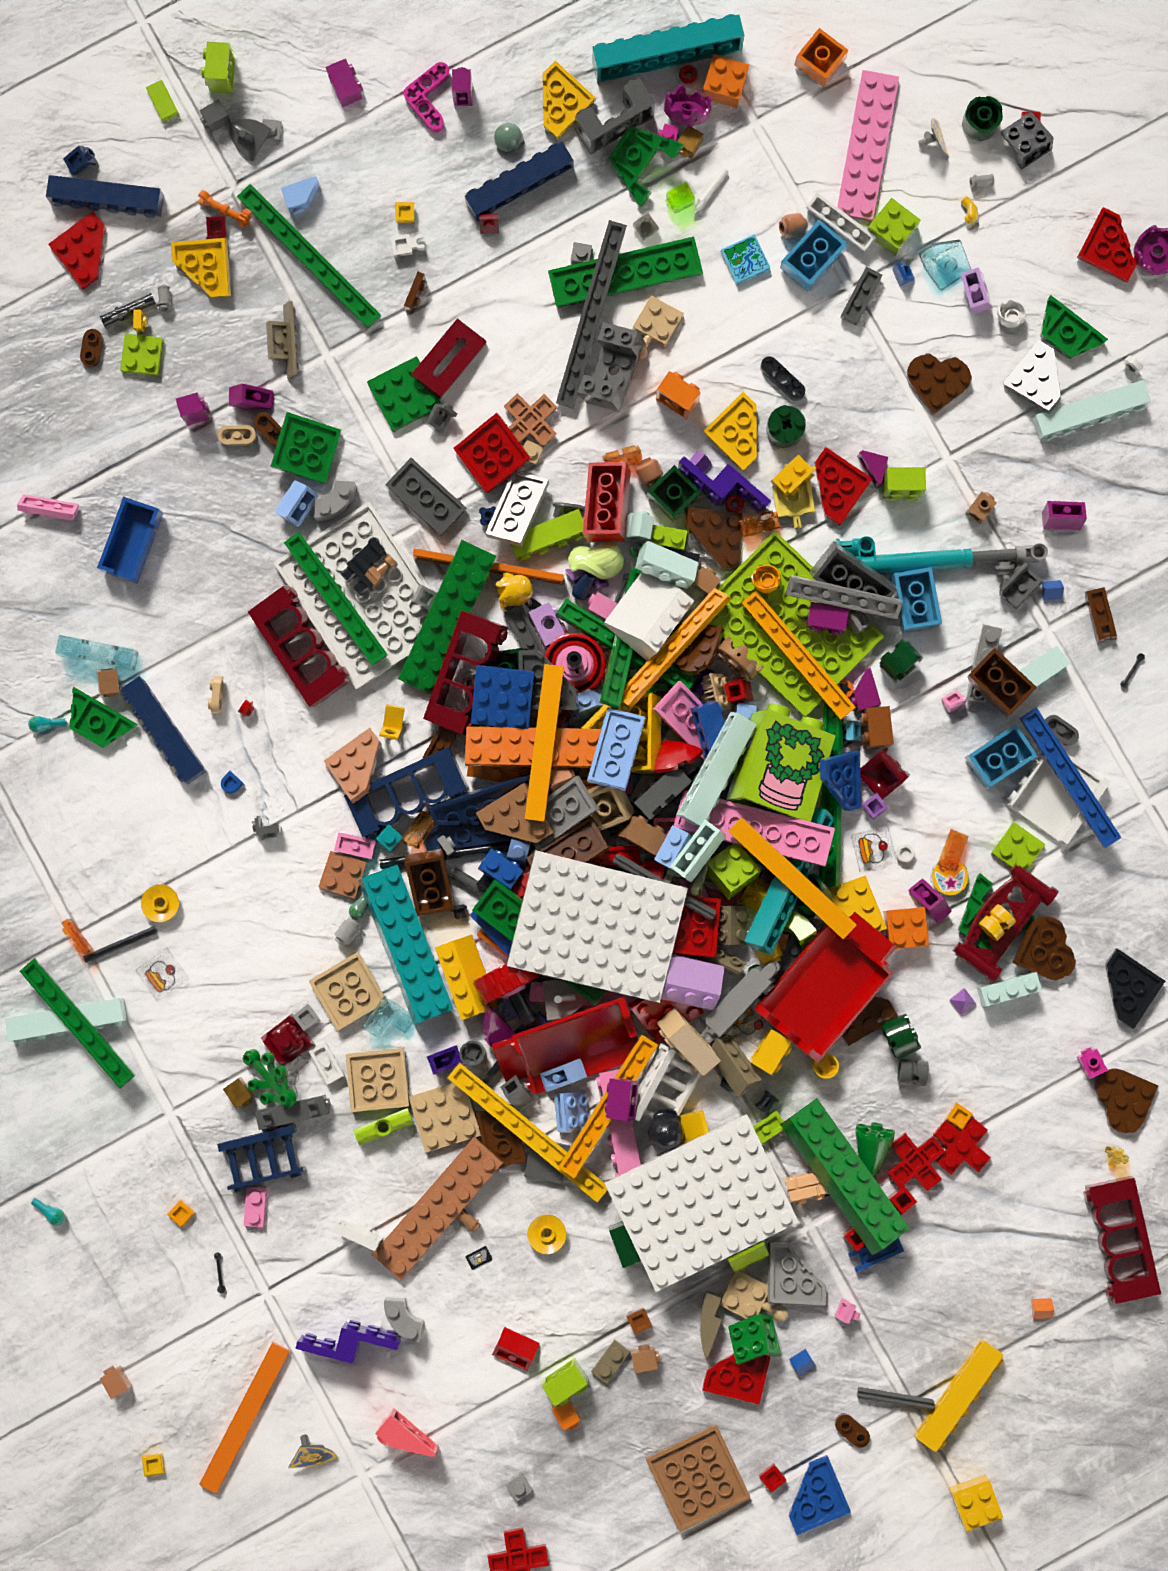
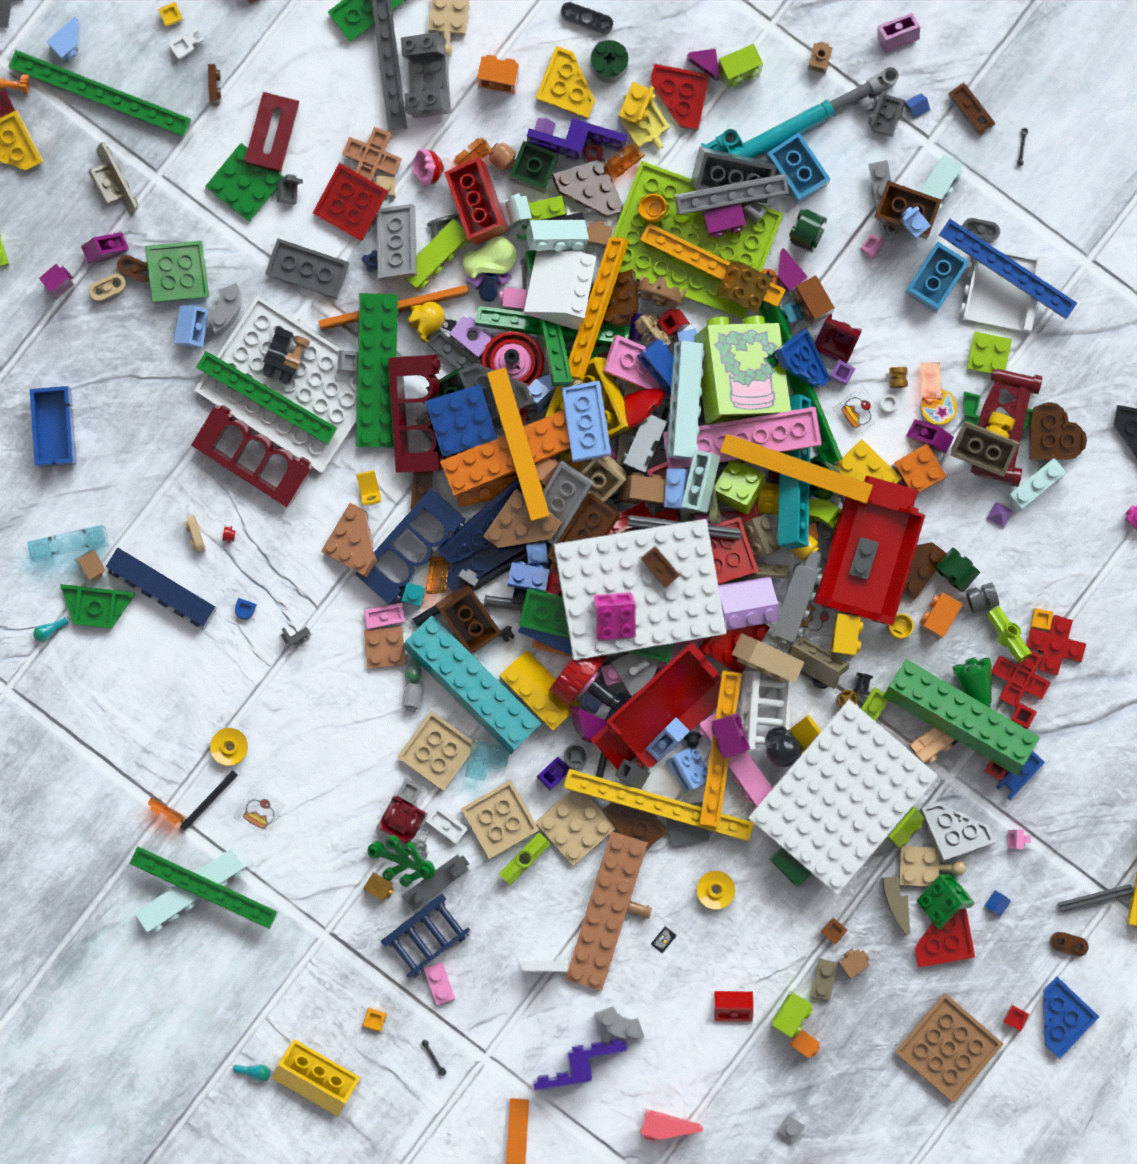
camera: 25 degrees left, 0 degrees up
(103, 1243) = (315, 1077): none -> yellow slope
(562, 942) = (615, 616): none -> dark pink bracket
(576, 451) = (427, 167): none -> bright pink hair
(587, 1084) = (692, 739): none -> black piece
(624, 914) = (660, 566): none -> reddish brown plate
(744, 1105) = (847, 695): none -> pearl gold wheel
(818, 687) = (744, 285): none -> pearl gold bracket
(818, 988) = (863, 558): none -> dark grey plate
(866, 1072) = (940, 616): none -> orange brick
(922, 1117) = (1008, 634): none -> lime piece
(924, 833) = (898, 377): none -> pearl gold wheel
(975, 935) = (984, 448): none -> dark tan slope
(1003, 697) = (914, 222): none -> light blue bracket

